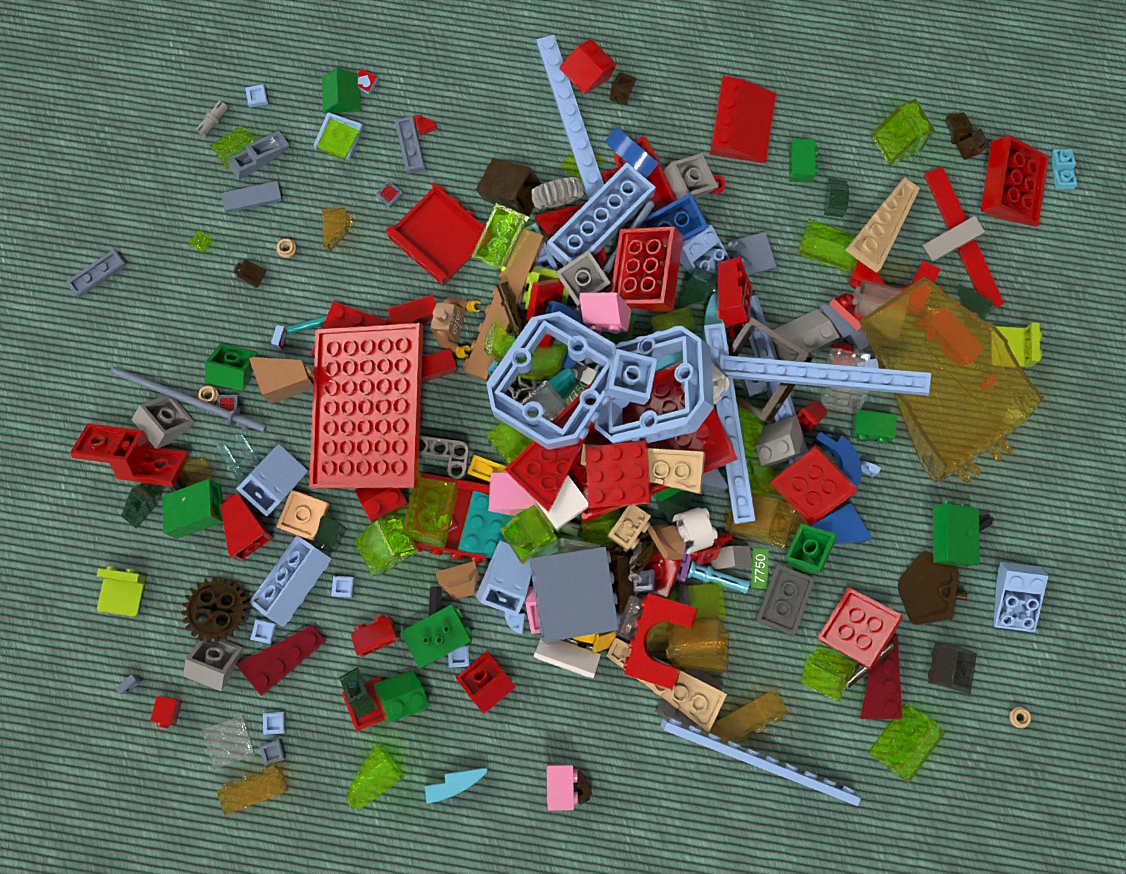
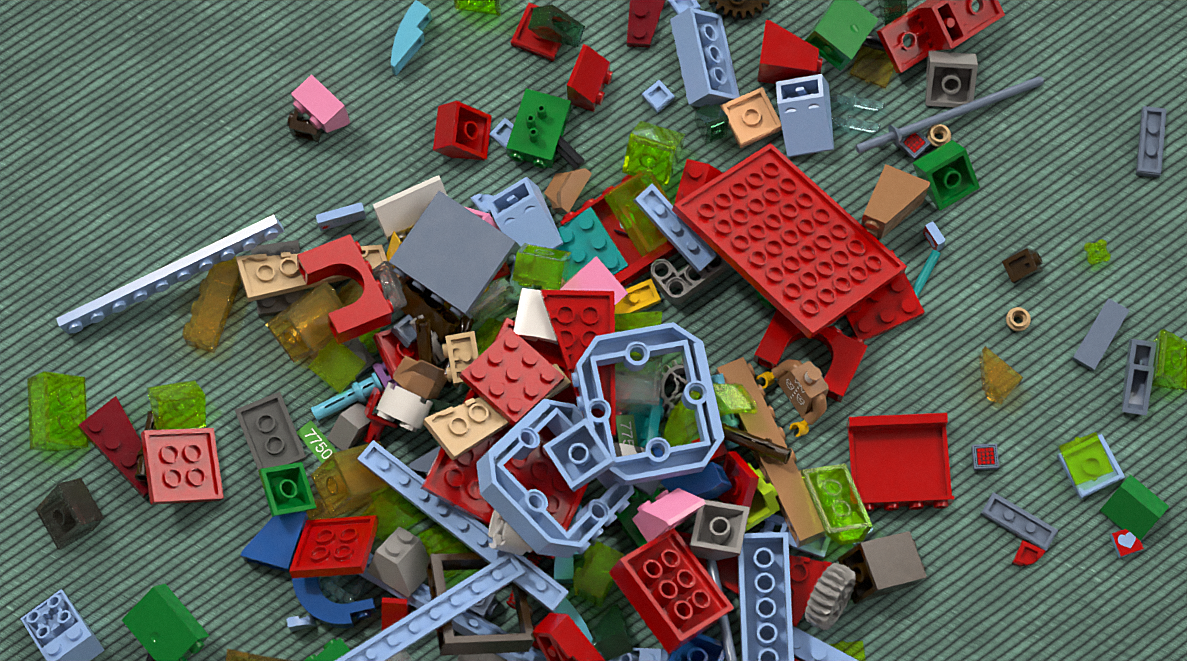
camera: 140 degrees right, 5 degrees down
(401, 696) = (519, 56): green slope -> none
(425, 493) = (681, 236): none -> light blue plate
(614, 700) = (340, 216): none -> light blue tile
(930, 590) = (144, 560): dark brown animal -> none

